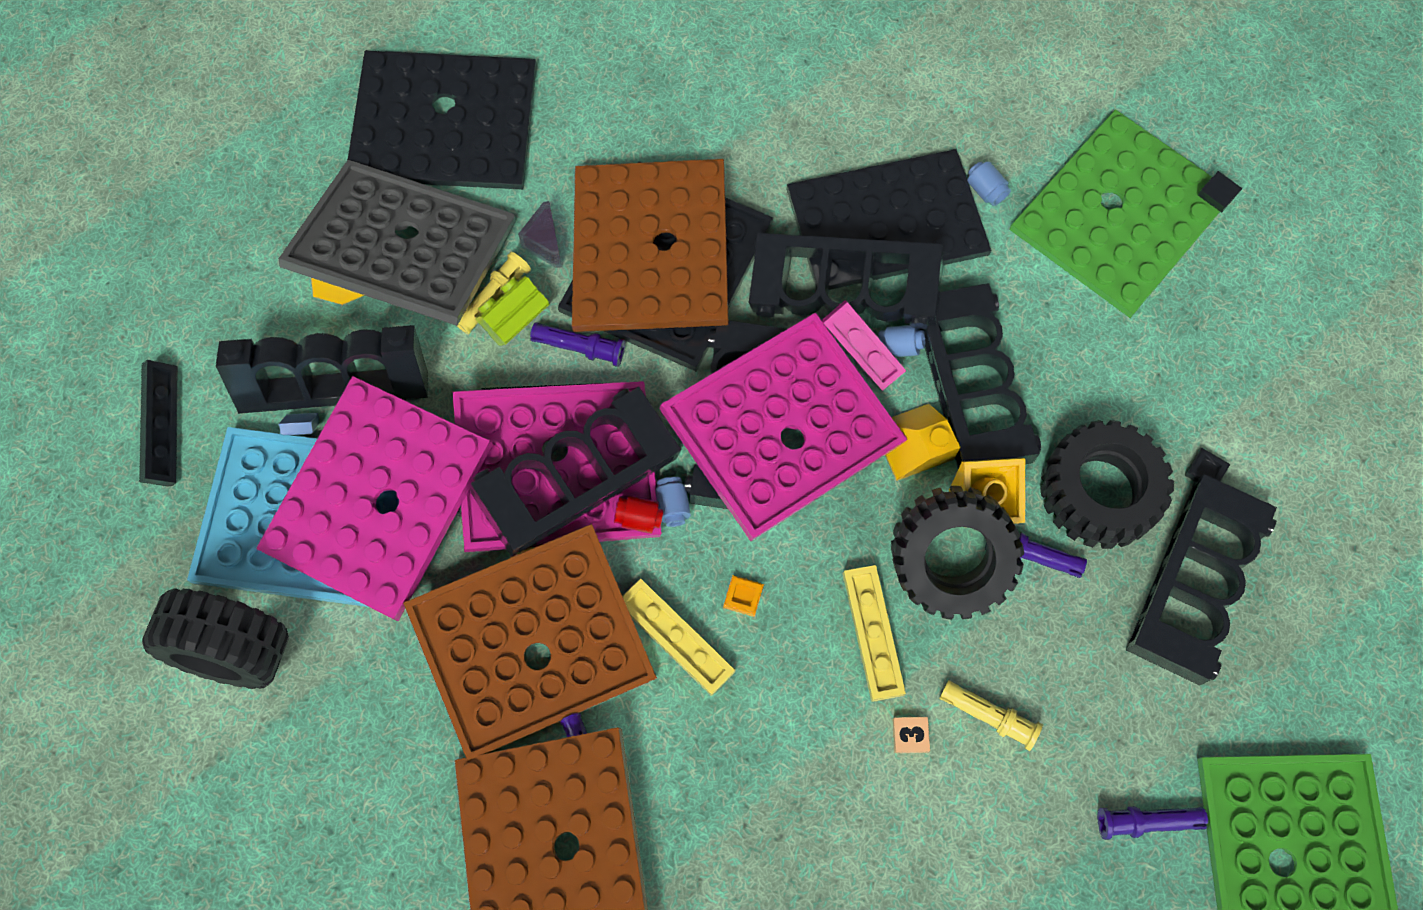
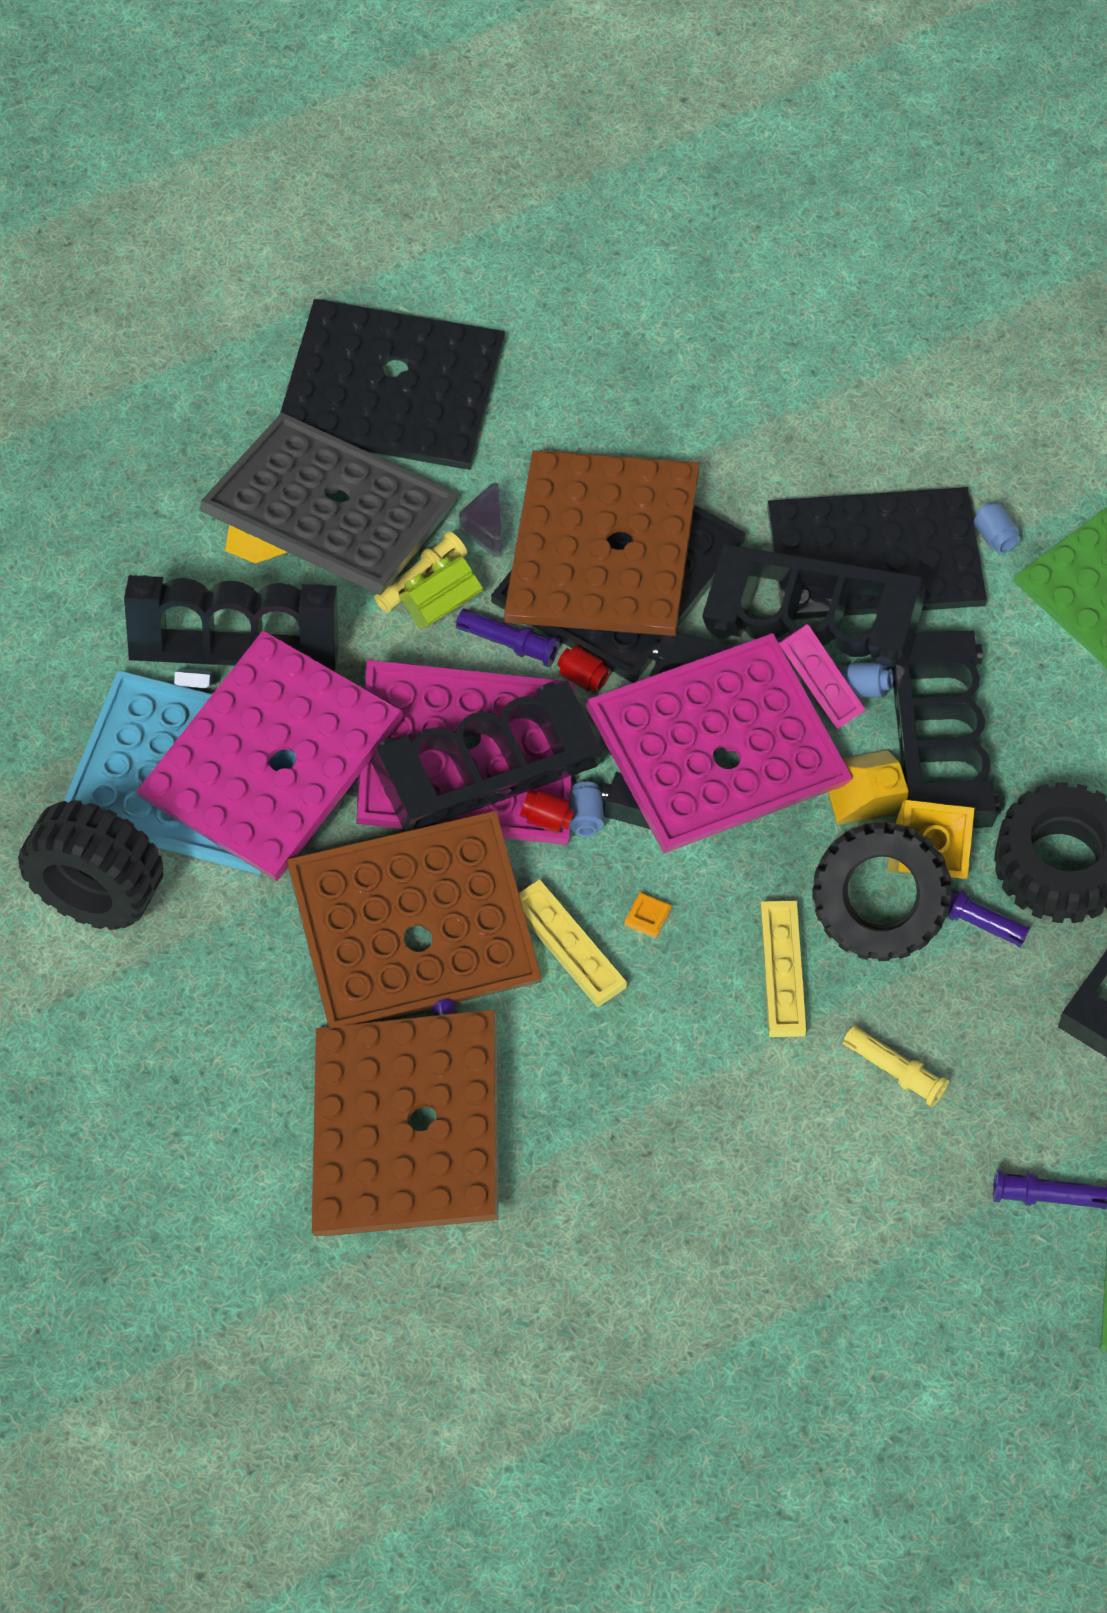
camera: 10 degrees right, 10 degrees down
(158, 423) = (44, 657): black plate -> none
(650, 365) = (583, 669): none -> red brick
(911, 735) = (805, 1074): light nougat tile -> none

